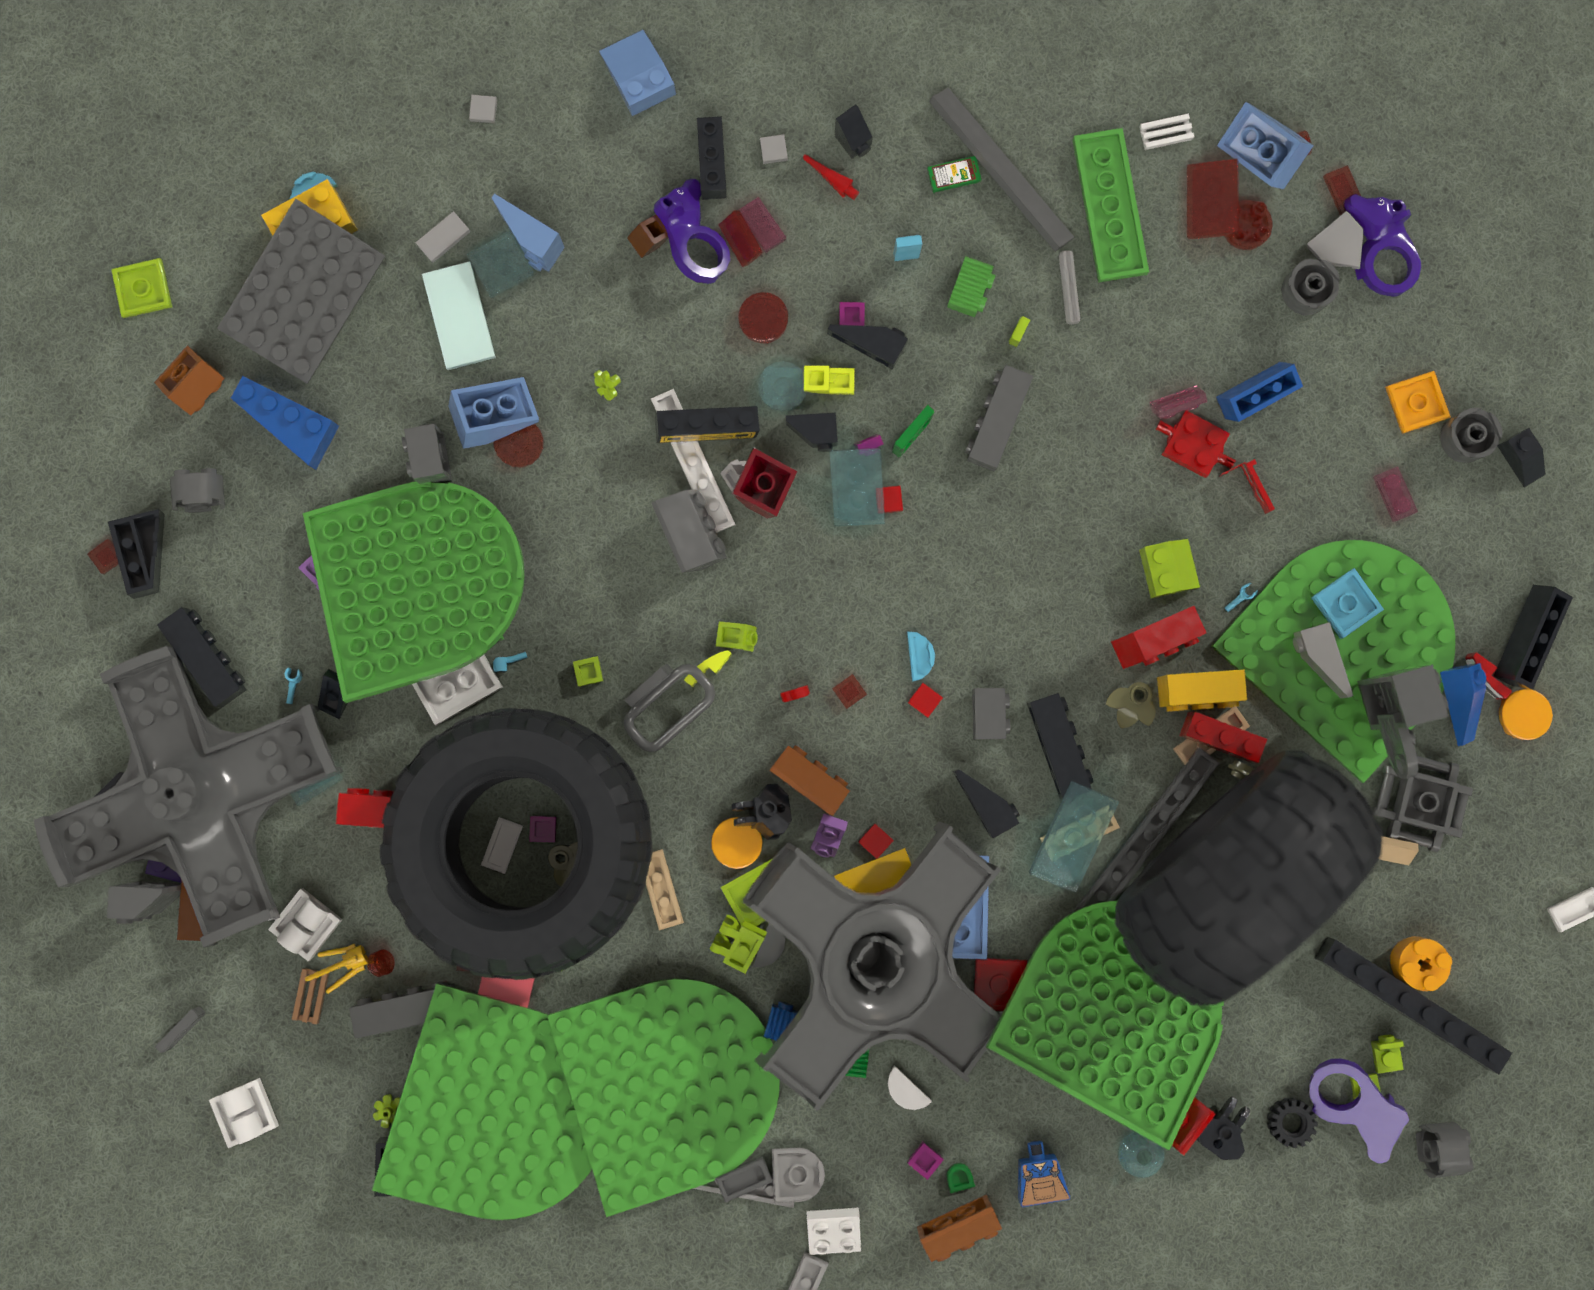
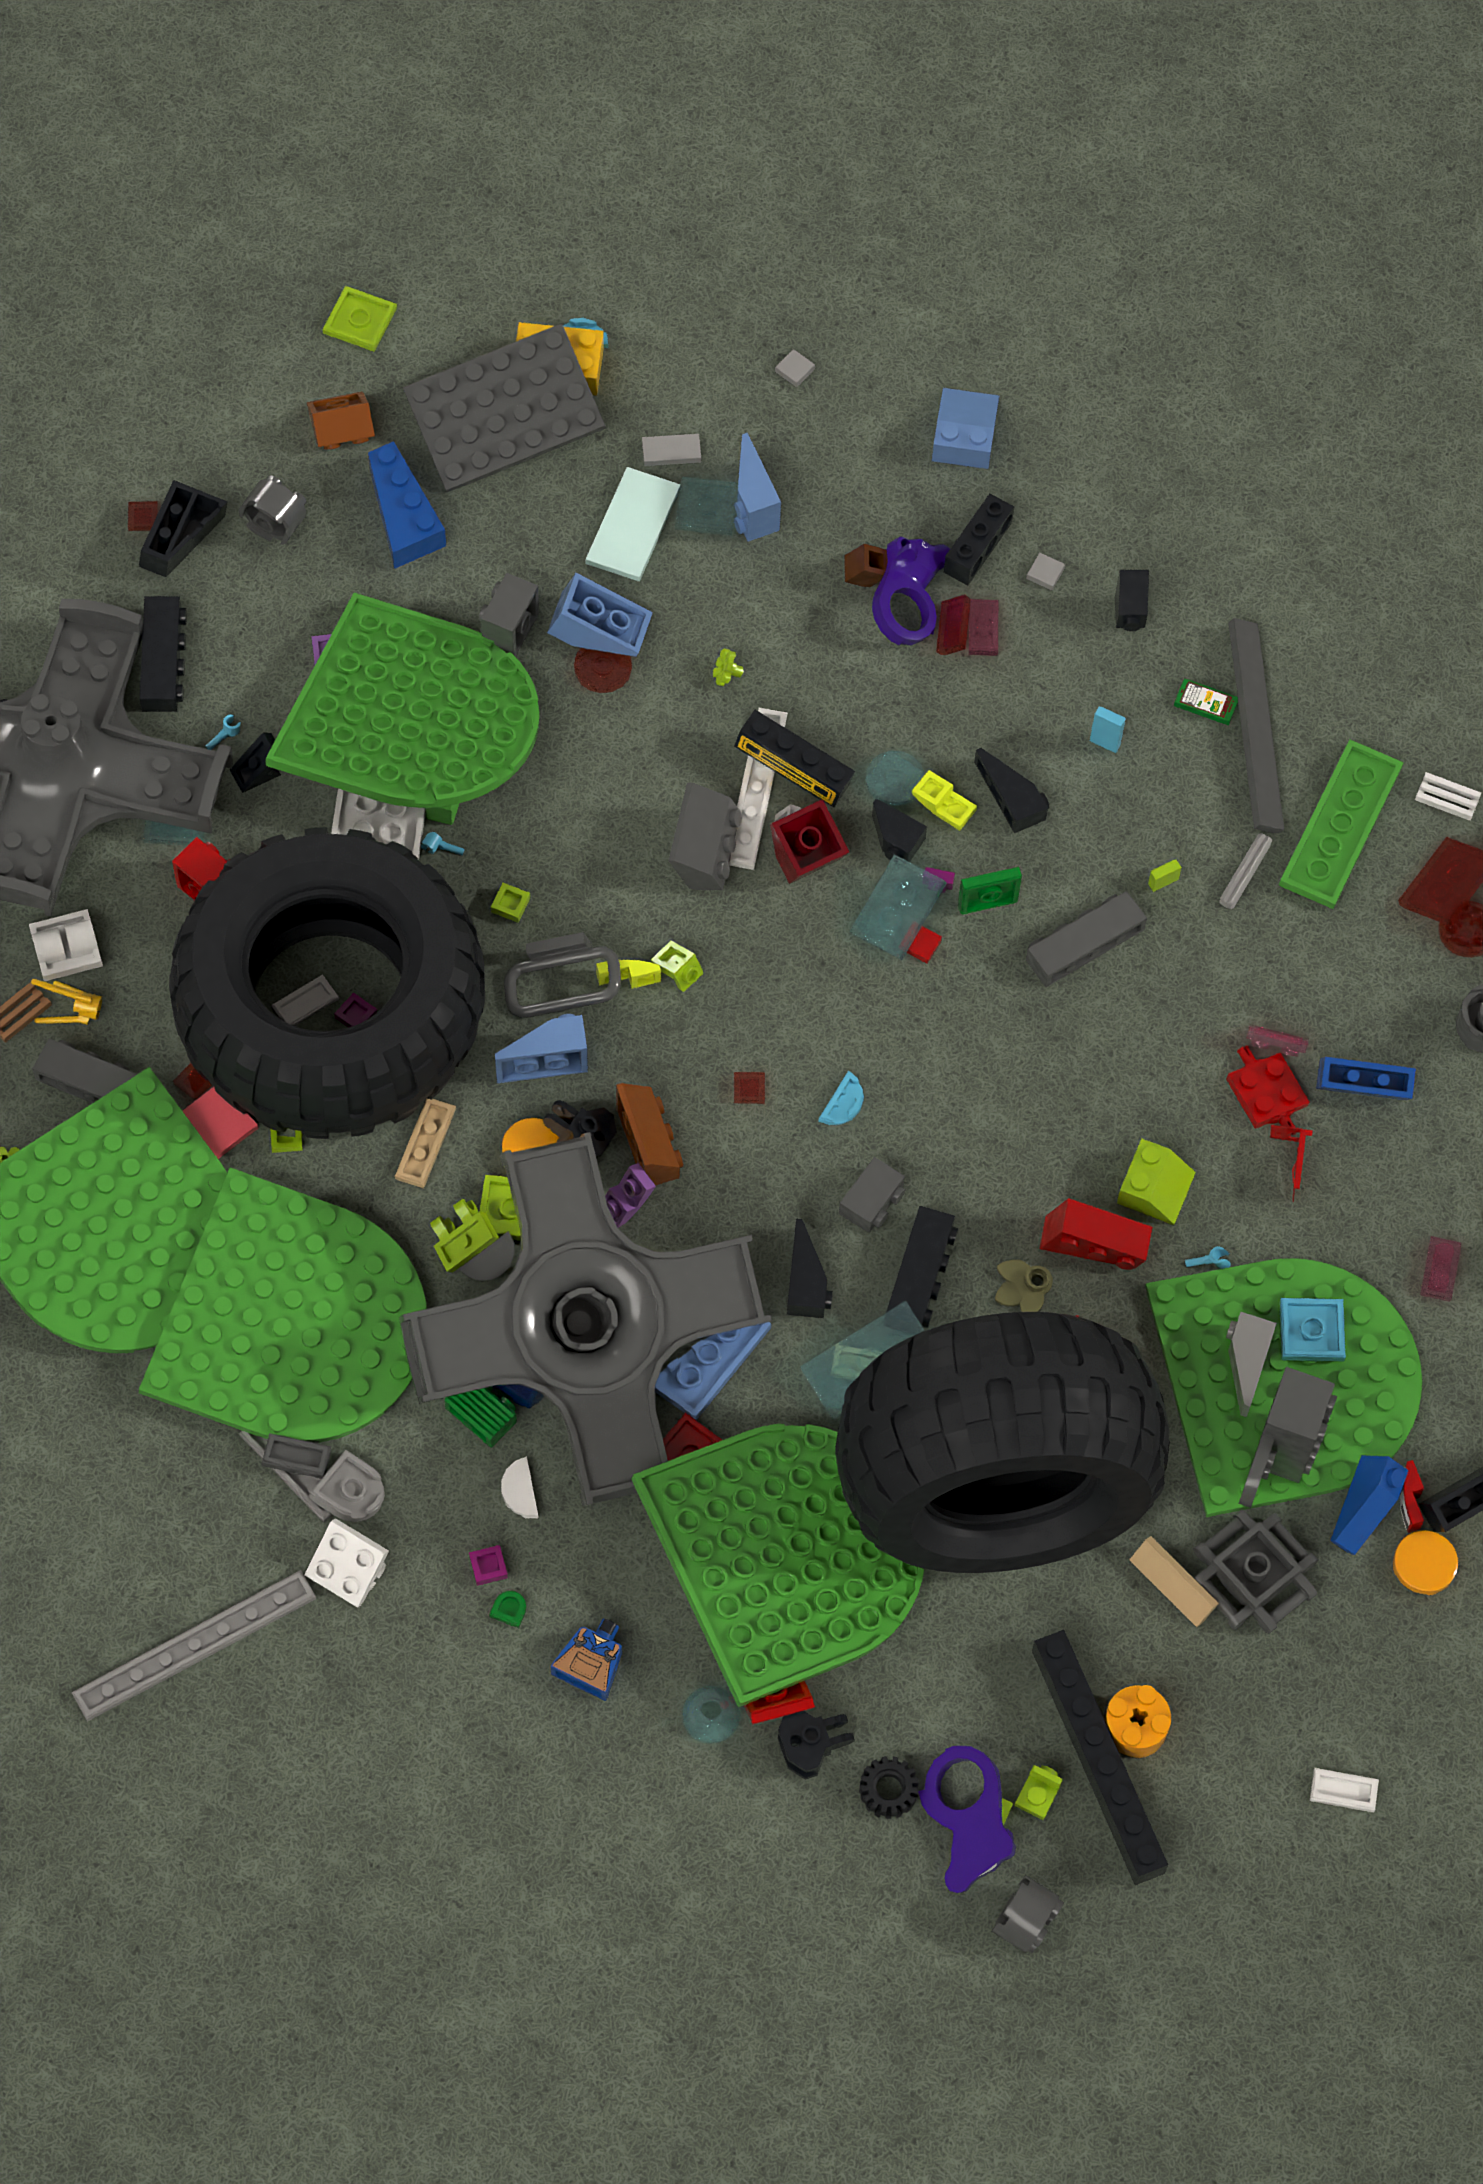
camera: 35 degrees right, 20 degrees down
(380, 963) = (108, 1025): clear red tile -> none
(700, 766) = (546, 1051): none -> medium blue slope
(763, 317) = (922, 706): clear red tile -> none
(794, 694) = (696, 1051): red tile -> none
(840, 183) = (1087, 638): red piece -> none
(852, 313) = (1012, 755): magenta plate -> none
(875, 841) = (669, 1237): red tile -> none
(925, 700) = (818, 1144): red tile -> none
(959, 1229) = (472, 1646): dark orange slope -> none
(970, 287) = (1146, 806): bright green brick -> none
(1202, 690) = (1101, 1300): yellow brick -> none

